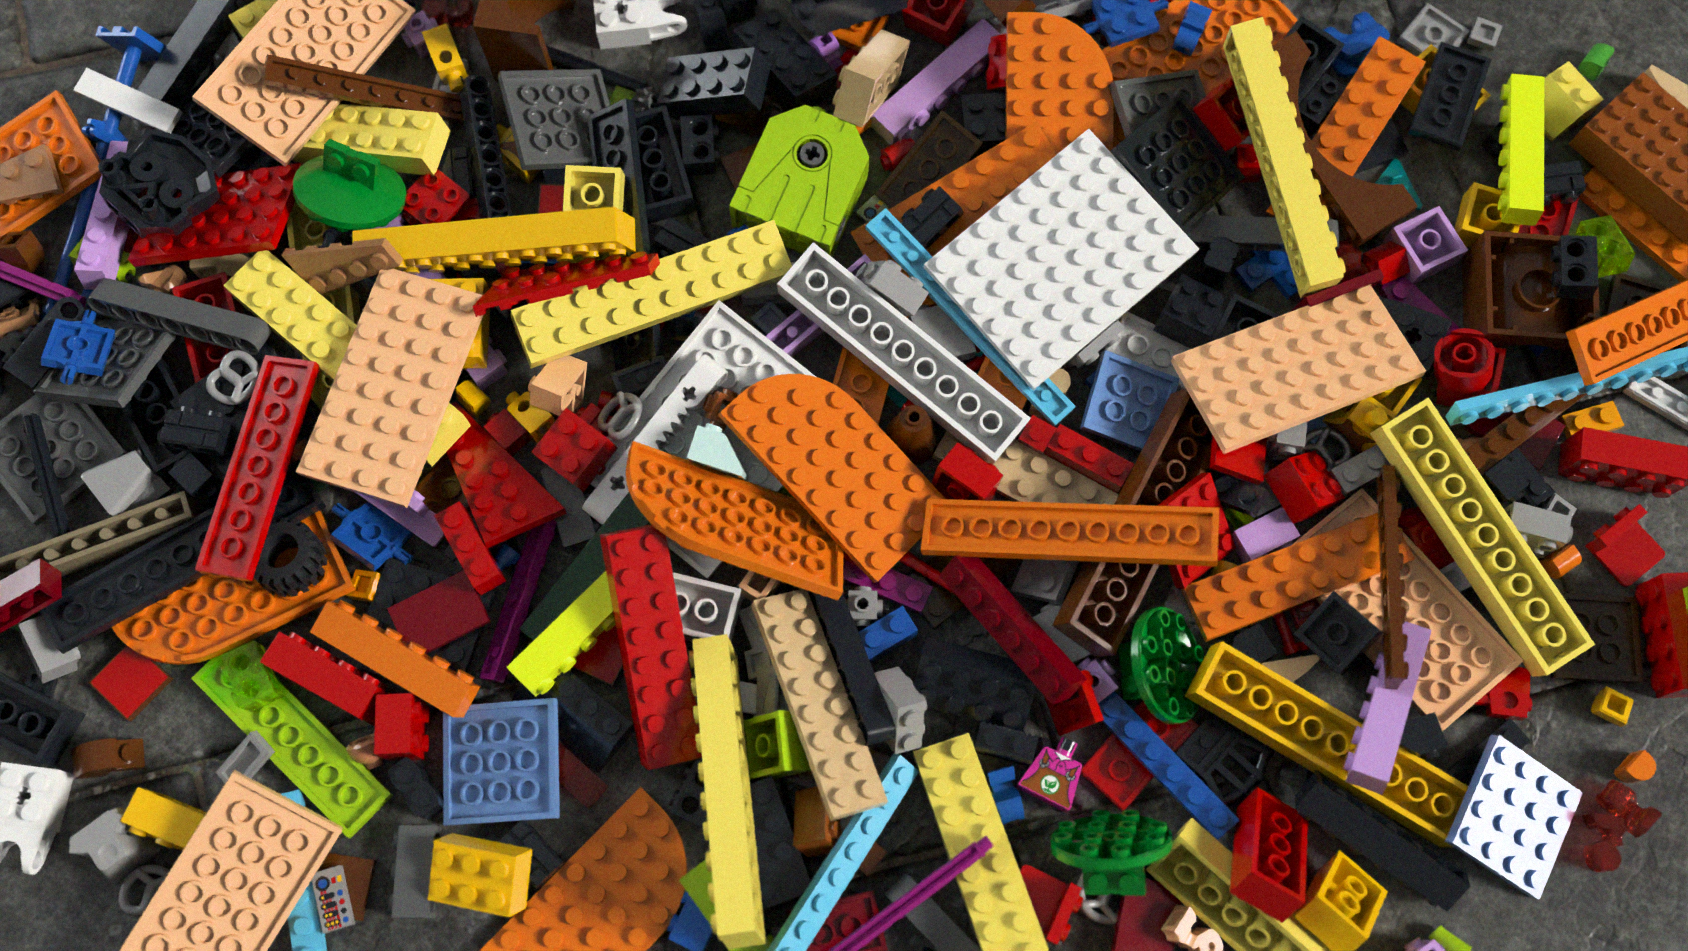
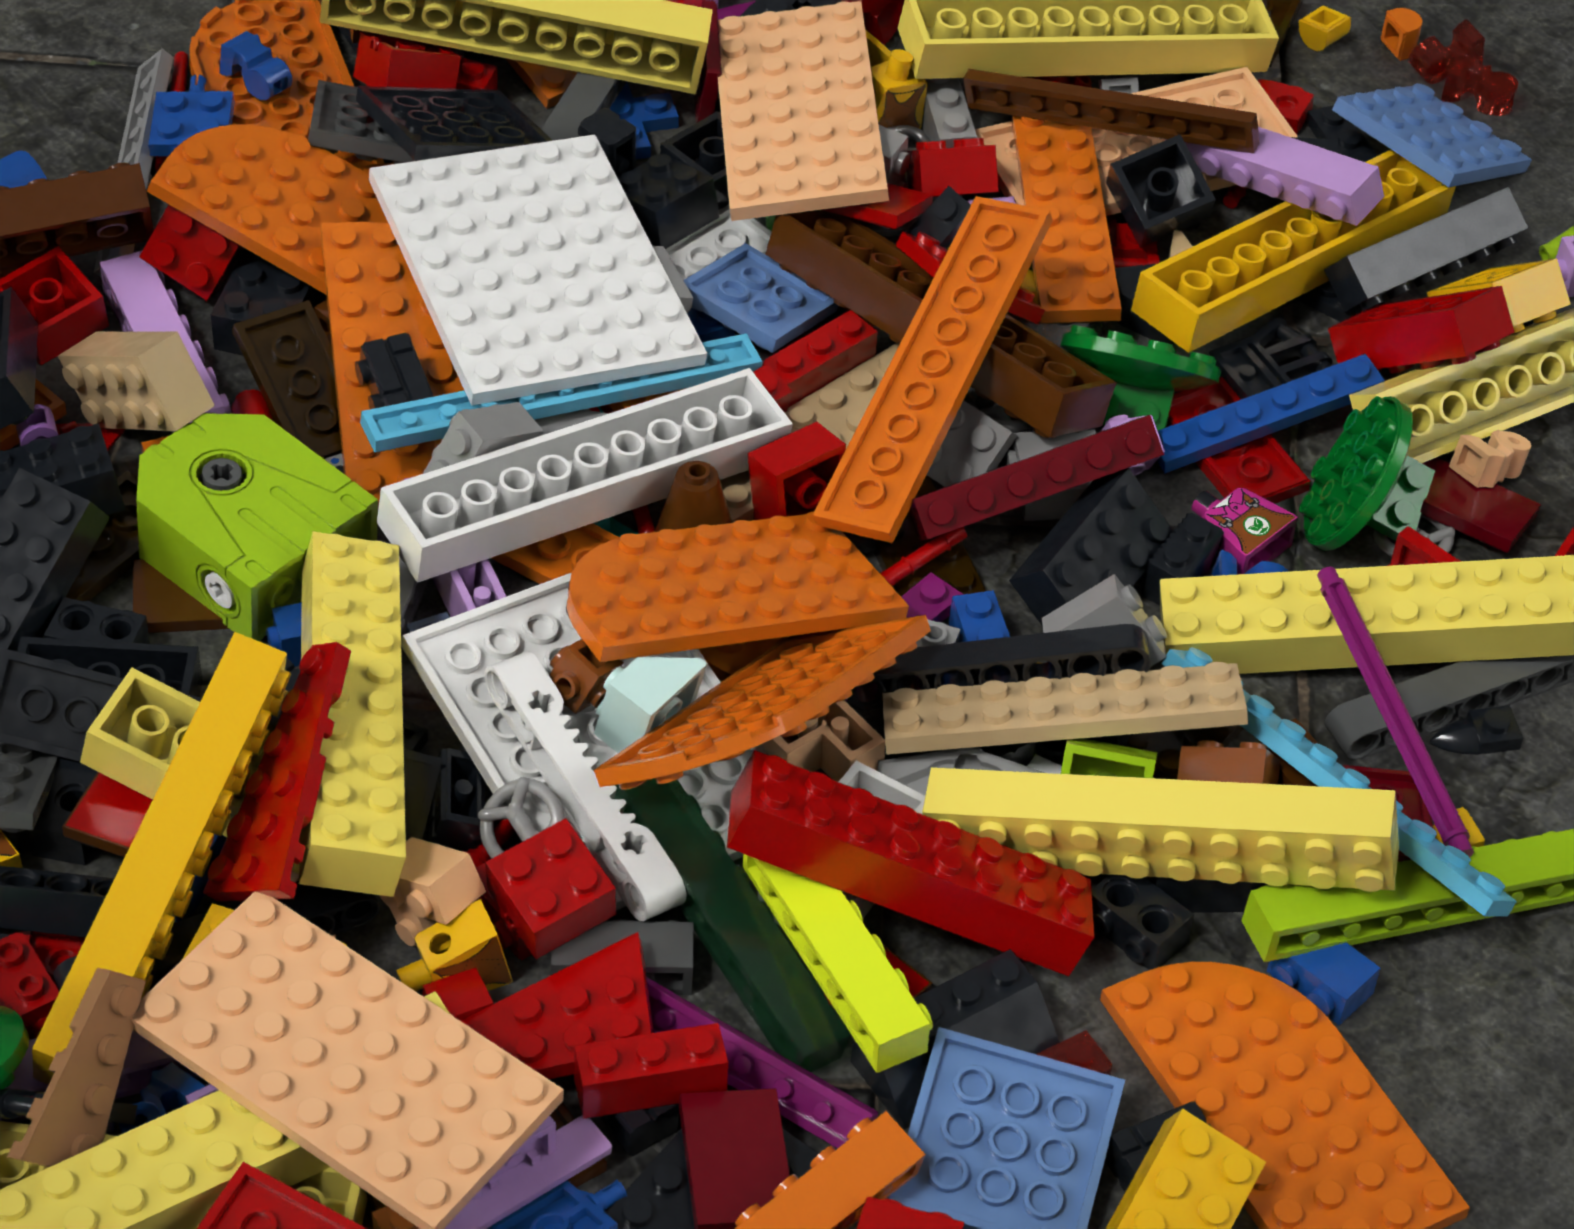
camera: 75 degrees left, 25 degrees down
(1078, 711) = (1171, 473): red plate -> none

